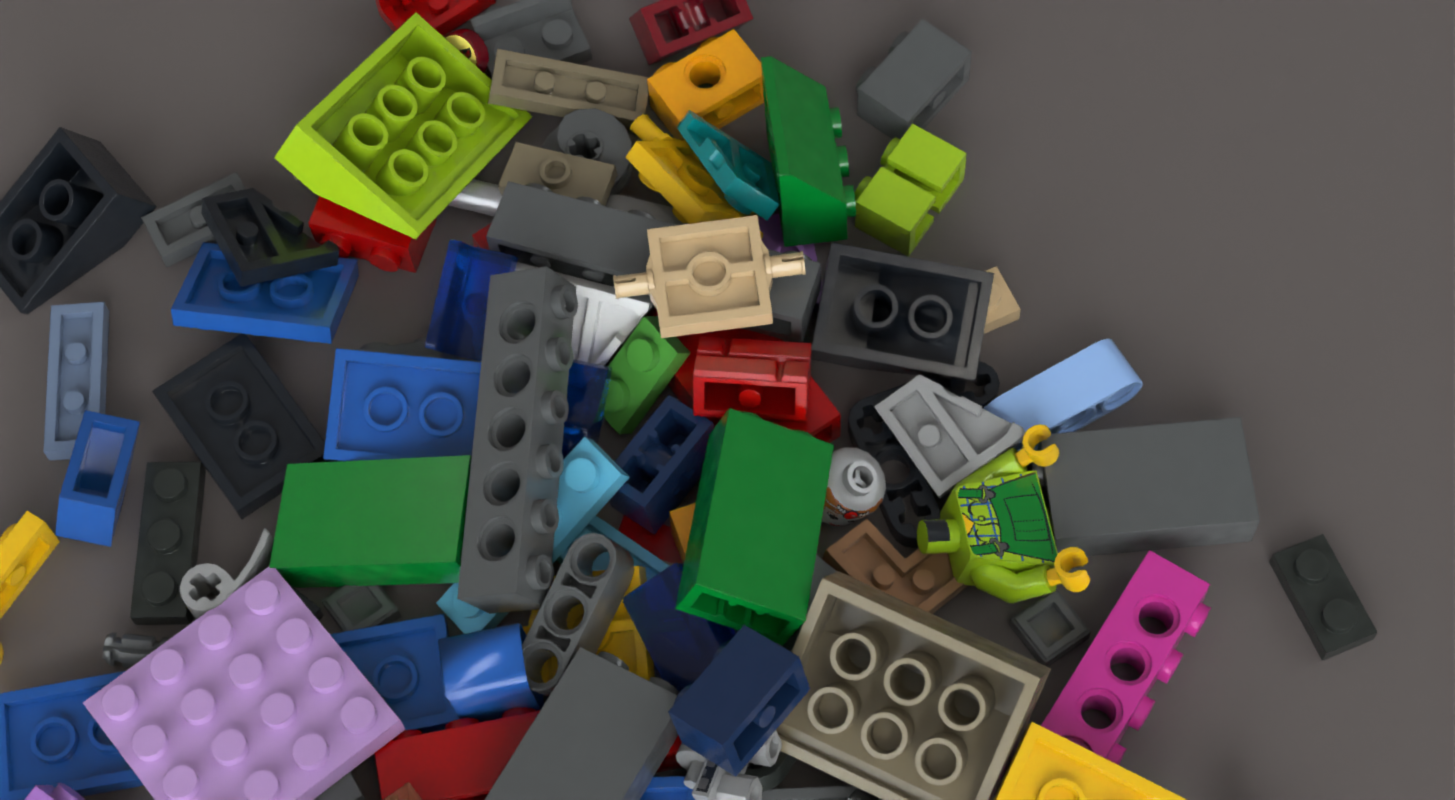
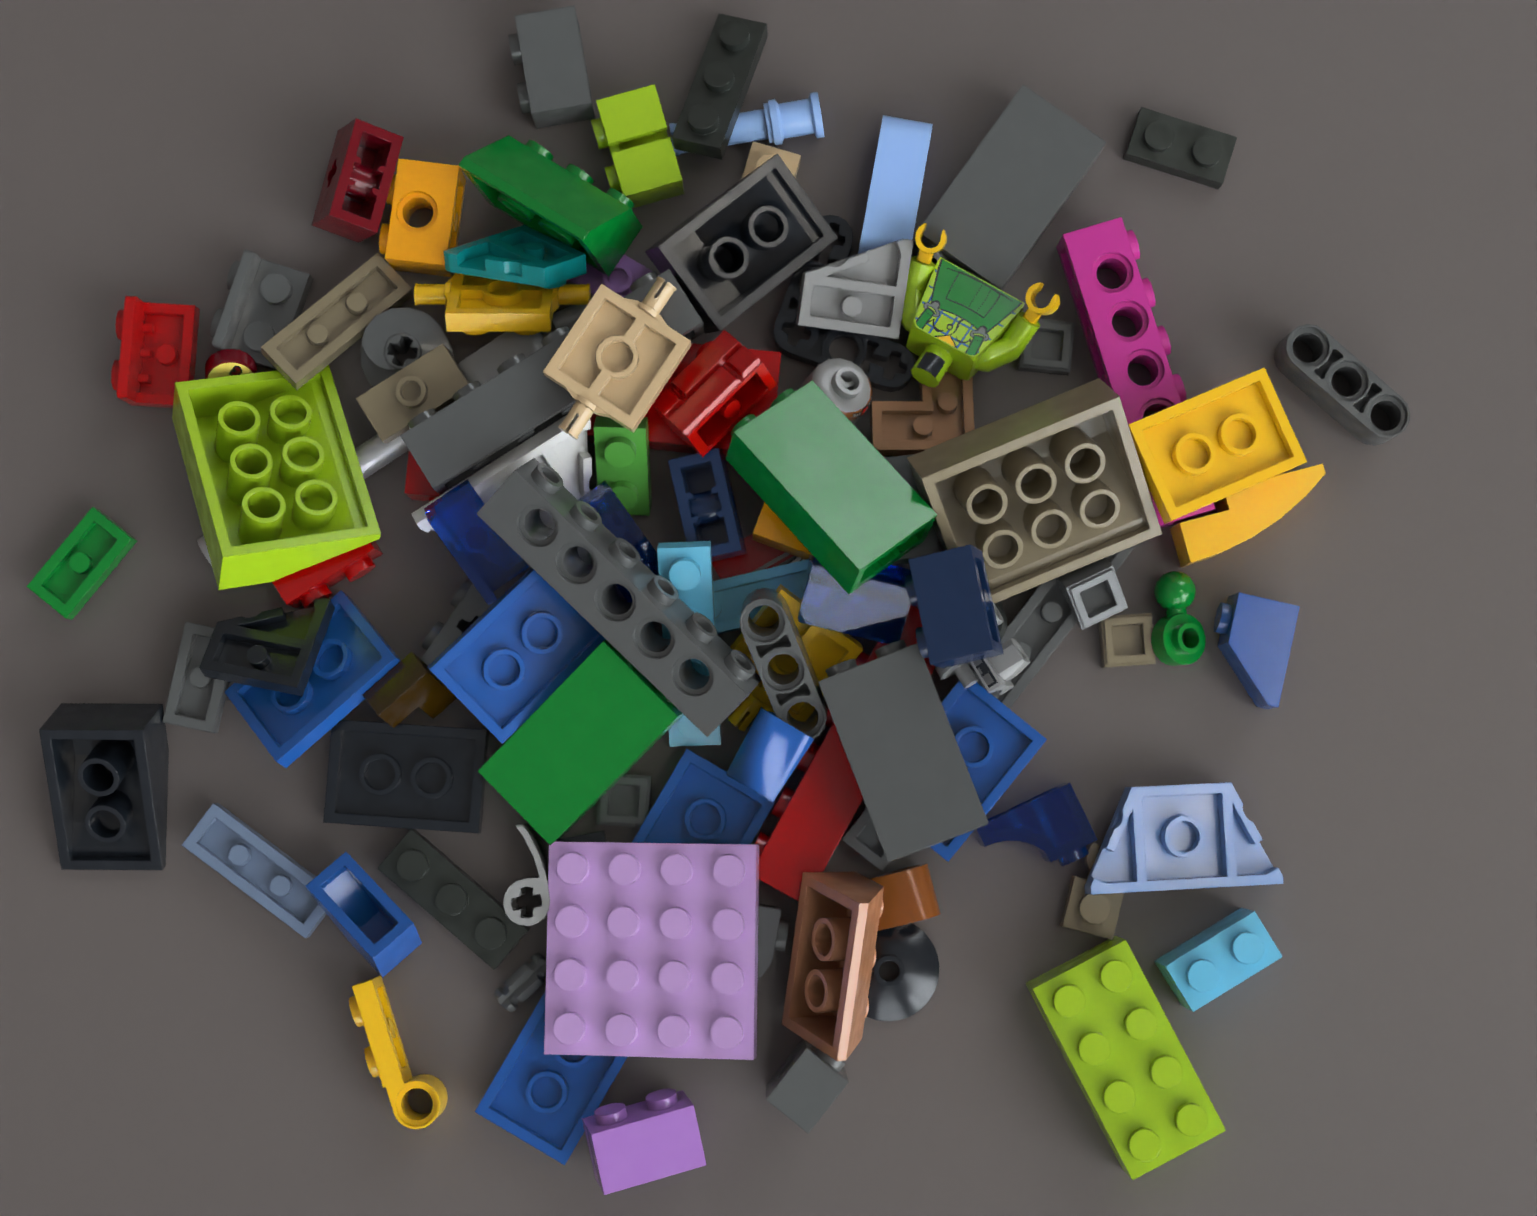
camera: 55 degrees left, 20 degrees up
(224, 73) = (82, 563): none -> green plate
(307, 359) = (405, 689): none -> dark brown piece
(1014, 204) = (720, 86): none -> pearl dark grey plate
(1025, 267) = (776, 122): none -> light blue pin

